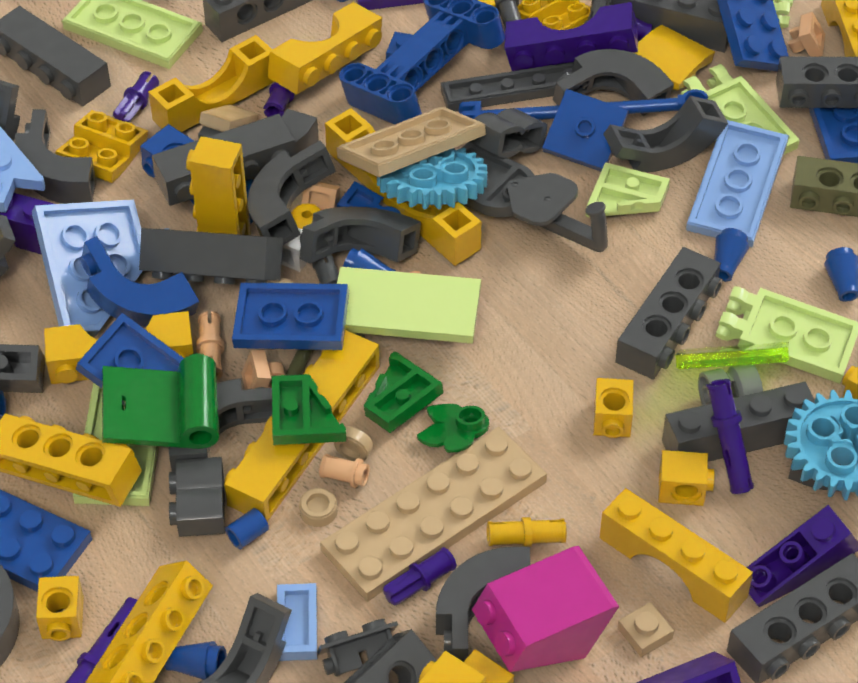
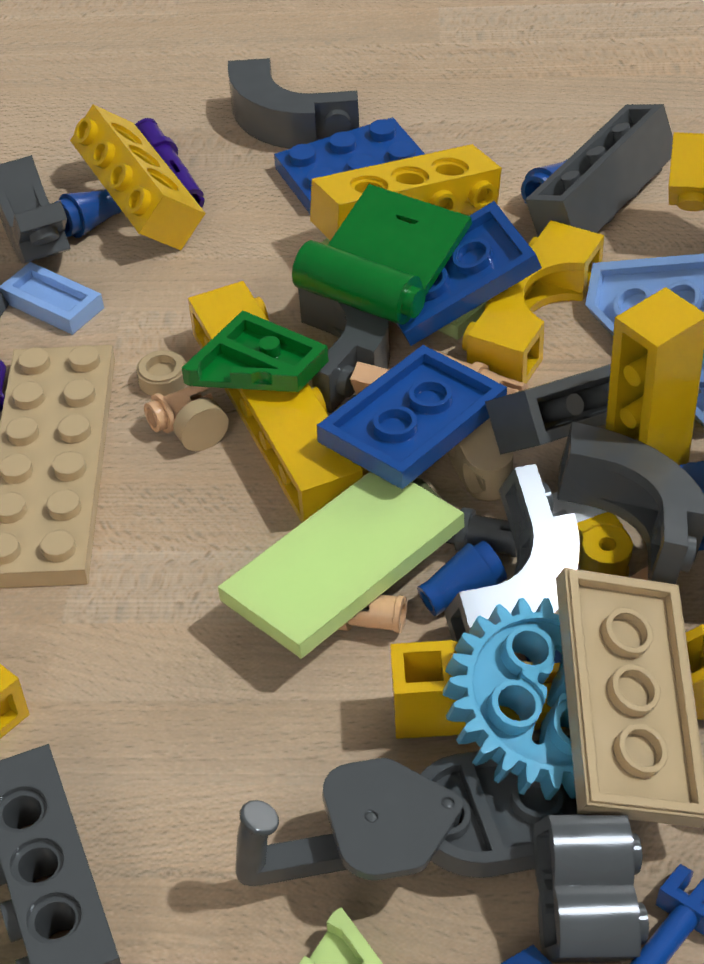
camera: 130 degrees right, 5 degrees down
(58, 594) = (240, 150): yellow brick -> none
(137, 301) = (583, 320): blue arch -> none
(199, 497) = (264, 273): dark grey brick -> none
(247, 528) = (187, 288): blue hinge -> none
(400, 393) = (230, 506): green wing -> none
(454, 426) = (134, 527): green plate -> none

